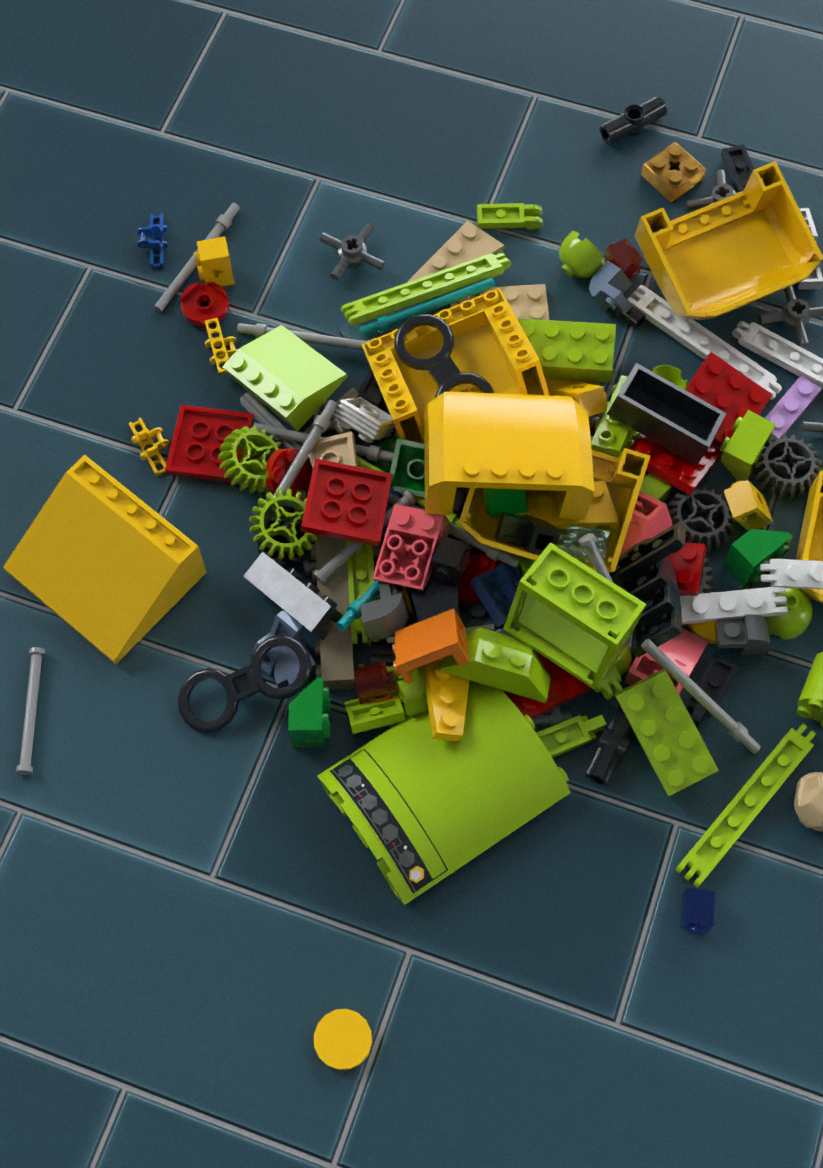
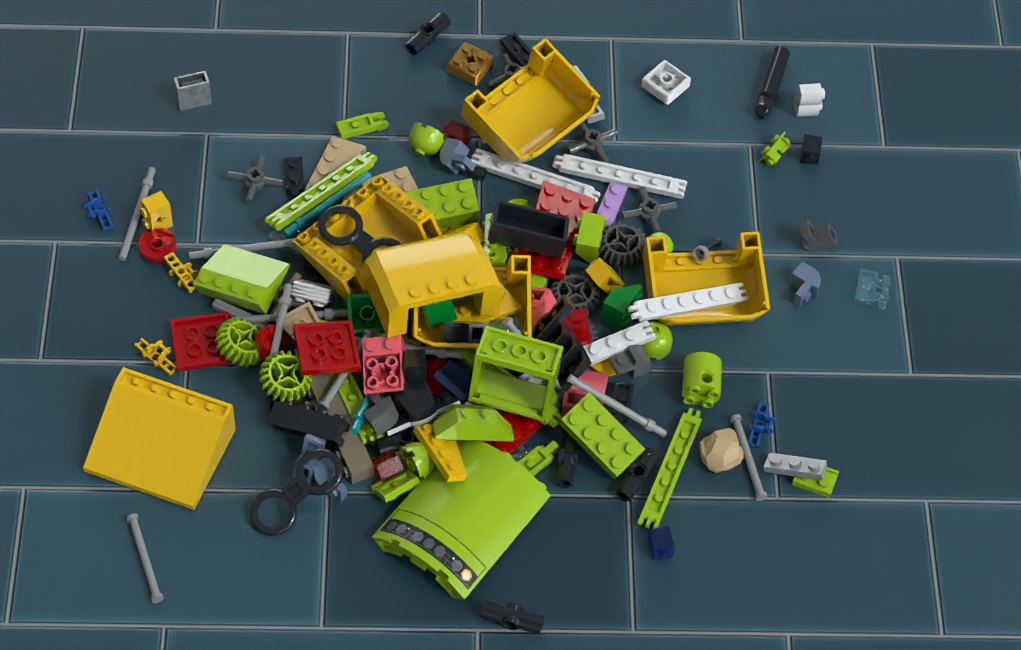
camera: 25 degrees left, 10 degrees down
(309, 717) = (353, 500): green slope -> none
(317, 119) = (192, 90): none -> flat silver piece
(402, 259) = (294, 175): none -> black hinge
(429, 642) = (420, 421): orange panel -> none
(460, 949) = (512, 616): none -> black piece
(687, 809) = (633, 482): none -> black piece

